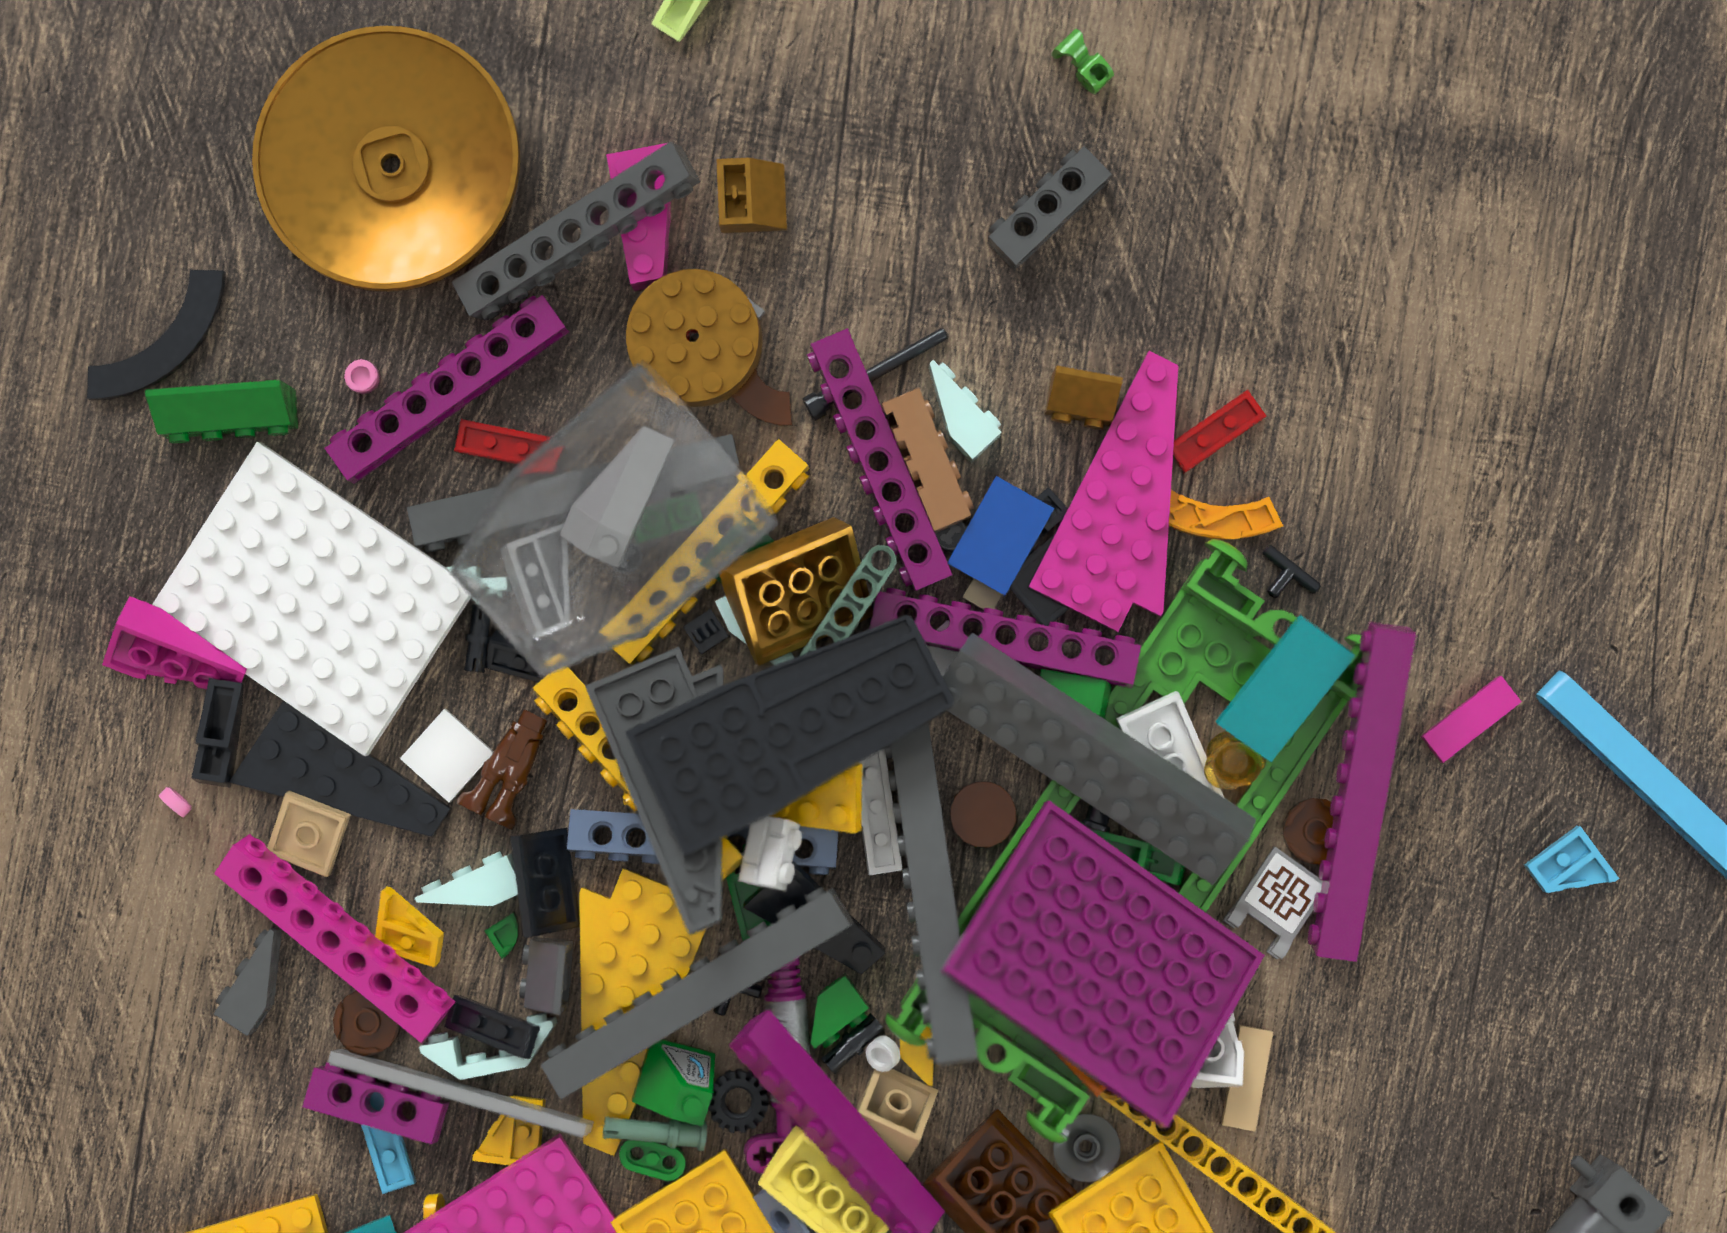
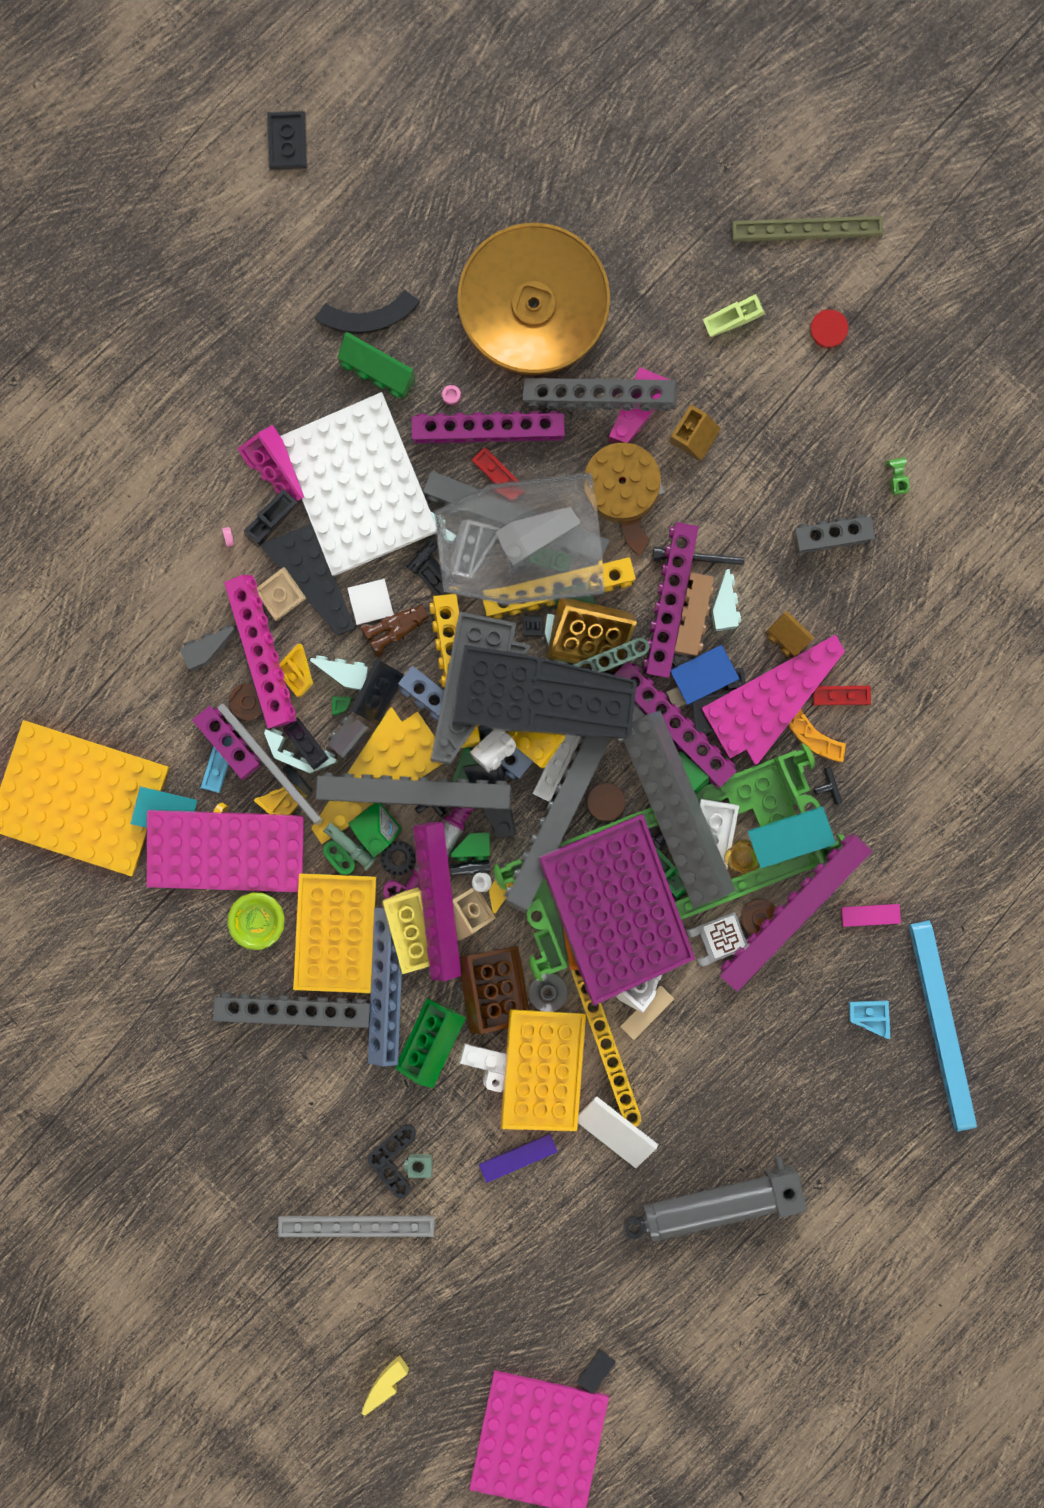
camera: 30 degrees right, 0 degrees up
(517, 1088) = (298, 780): none -> black tile

